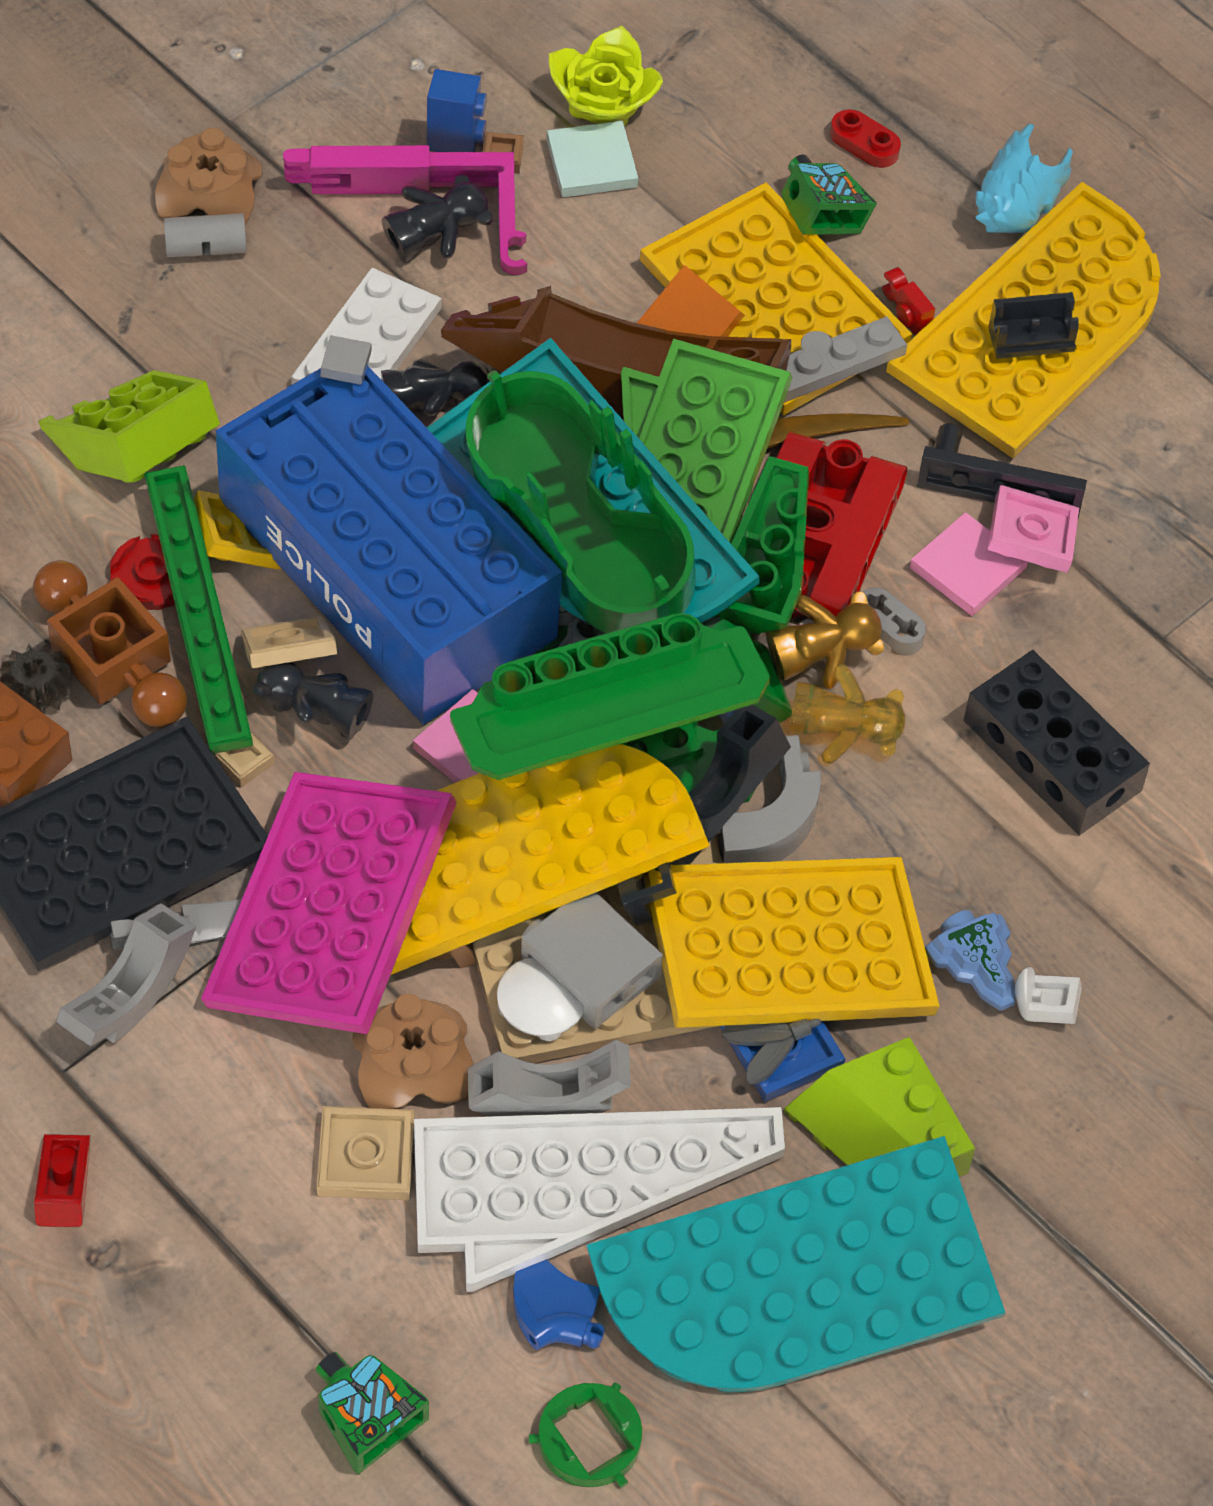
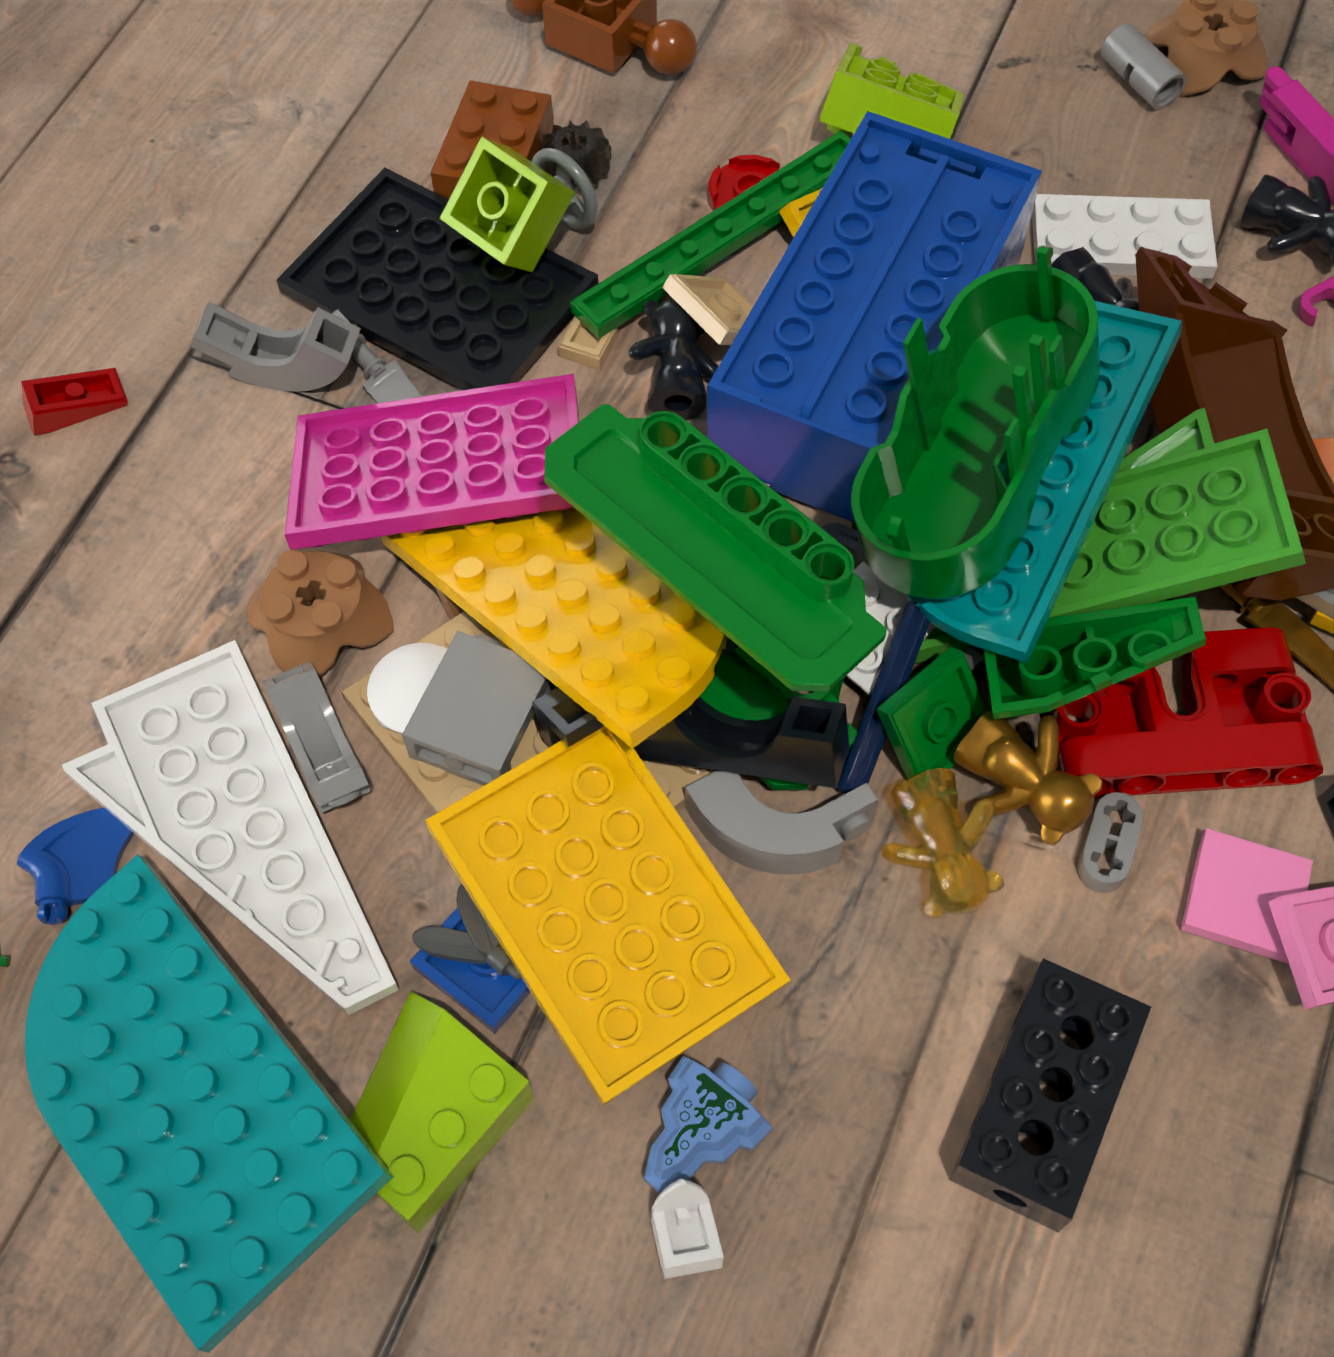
camera: 70 degrees right, 5 degrees up
(104, 731) = (516, 205): none -> lime piece
(110, 642) = (641, 184): dark orange brick -> none
(346, 359) = (1019, 166): light grey tile -> none
(365, 1153) = (193, 616): tan tile -> none

